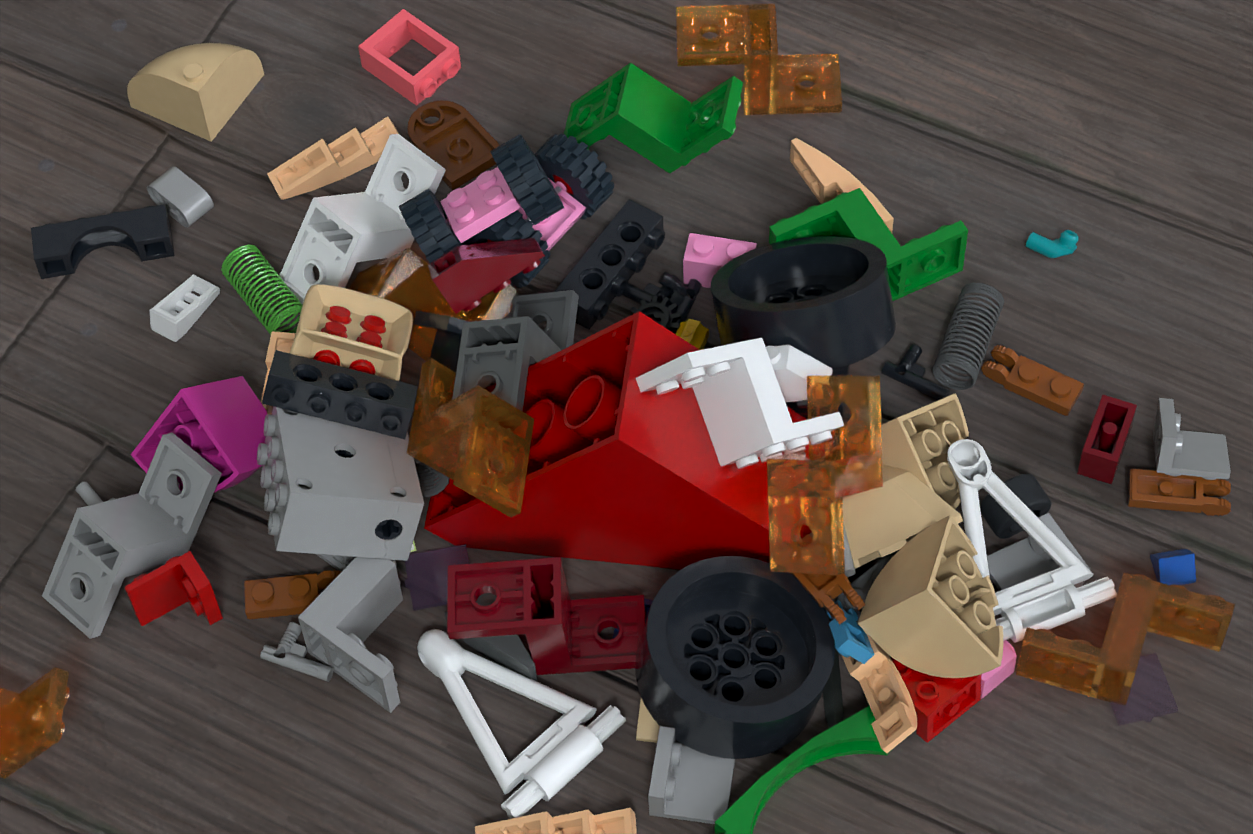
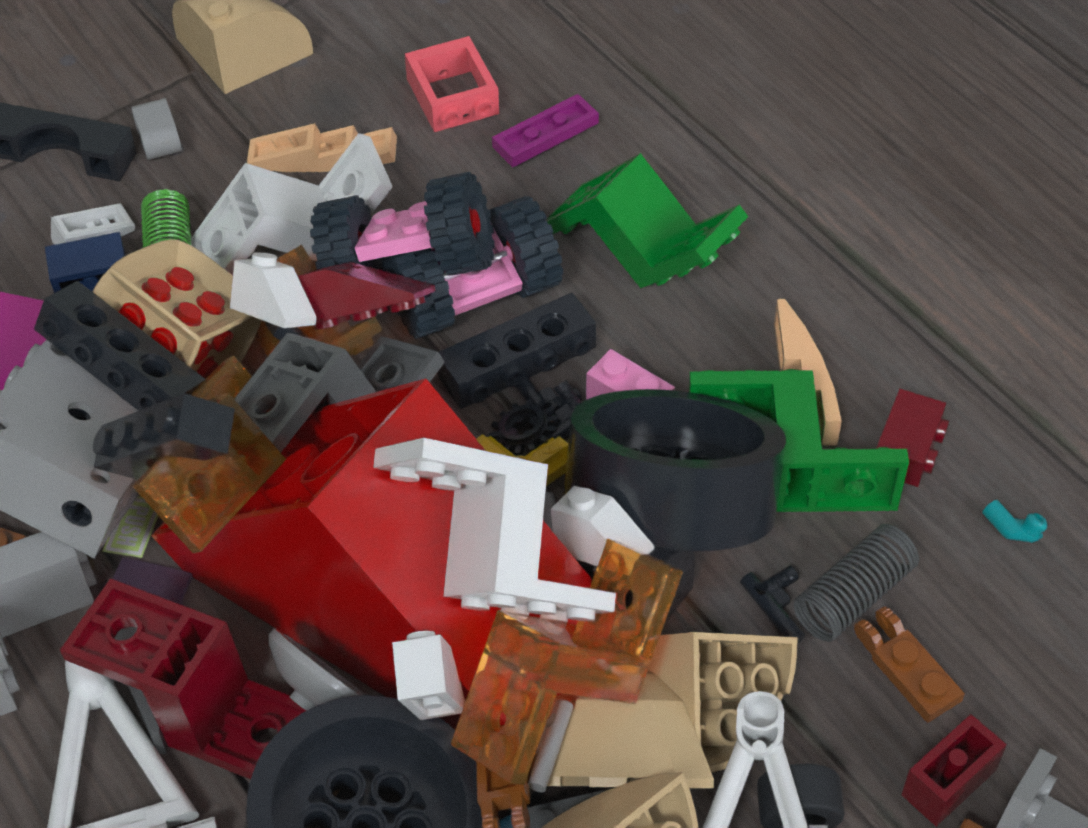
camera: 25 degrees right, 5 degrees down
(210, 339) = (83, 260): none -> dark blue brick
(426, 296) = (270, 292): none -> white slope
(453, 141) = (425, 164): reddish brown tile -> none
(471, 426) = (171, 428): none -> black arch
(513, 68) = (545, 130): none -> magenta plate
(627, 573) = (307, 674): none -> light grey dish
(740, 526) = (427, 676): none -> white slope
(750, 38) = (786, 183): clear orange bracket -> none
(945, 202) = (915, 426): none -> dark red brick

